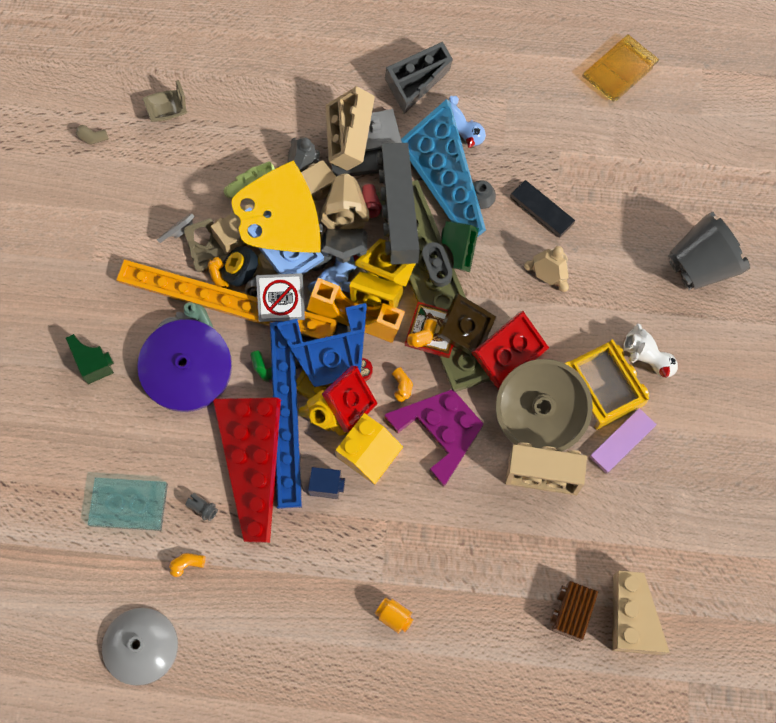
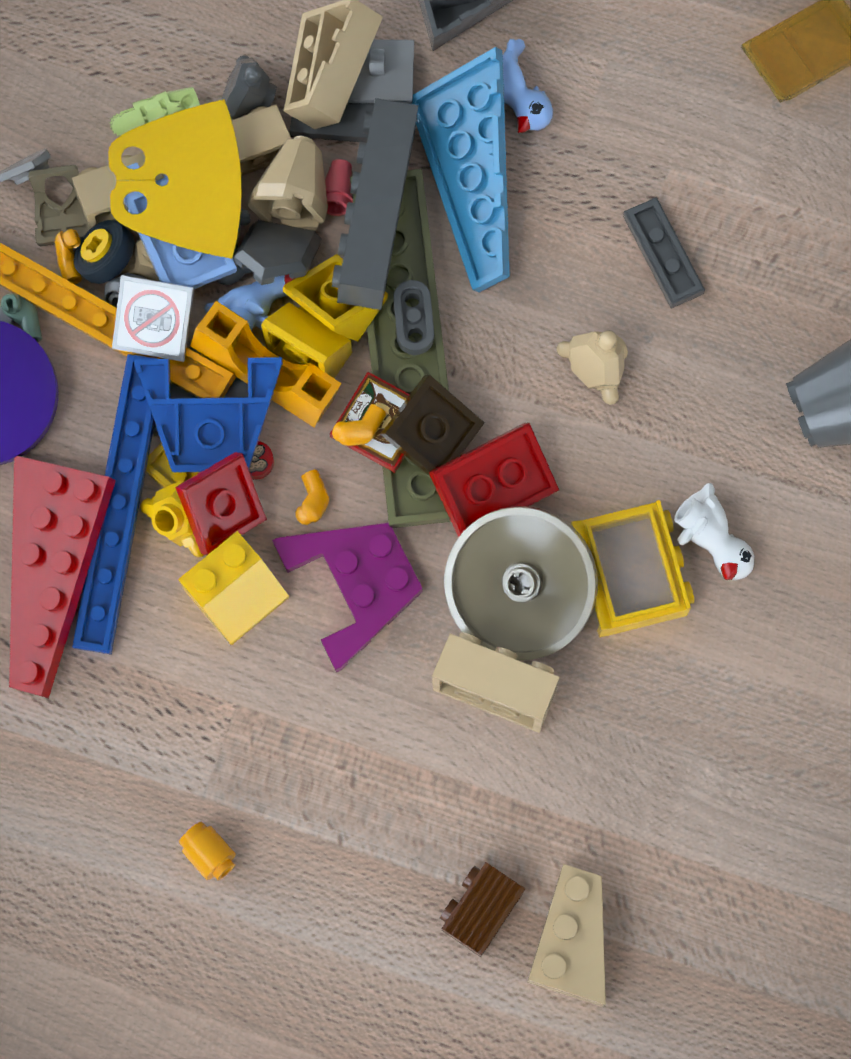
camera: 15 degrees right, 5 degrees up
(259, 366) = (97, 419): green arm -> none
(326, 483) = (154, 626): dark blue brick -> none
(462, 242) = (463, 292): dark green arch -> none
(485, 193) = (524, 215): dark grey cone -> none
(542, 208) = (612, 259): black tile -> none
(571, 198) = (663, 252): none -> dark grey tile
(622, 441) = (634, 664): lavender tile -> none

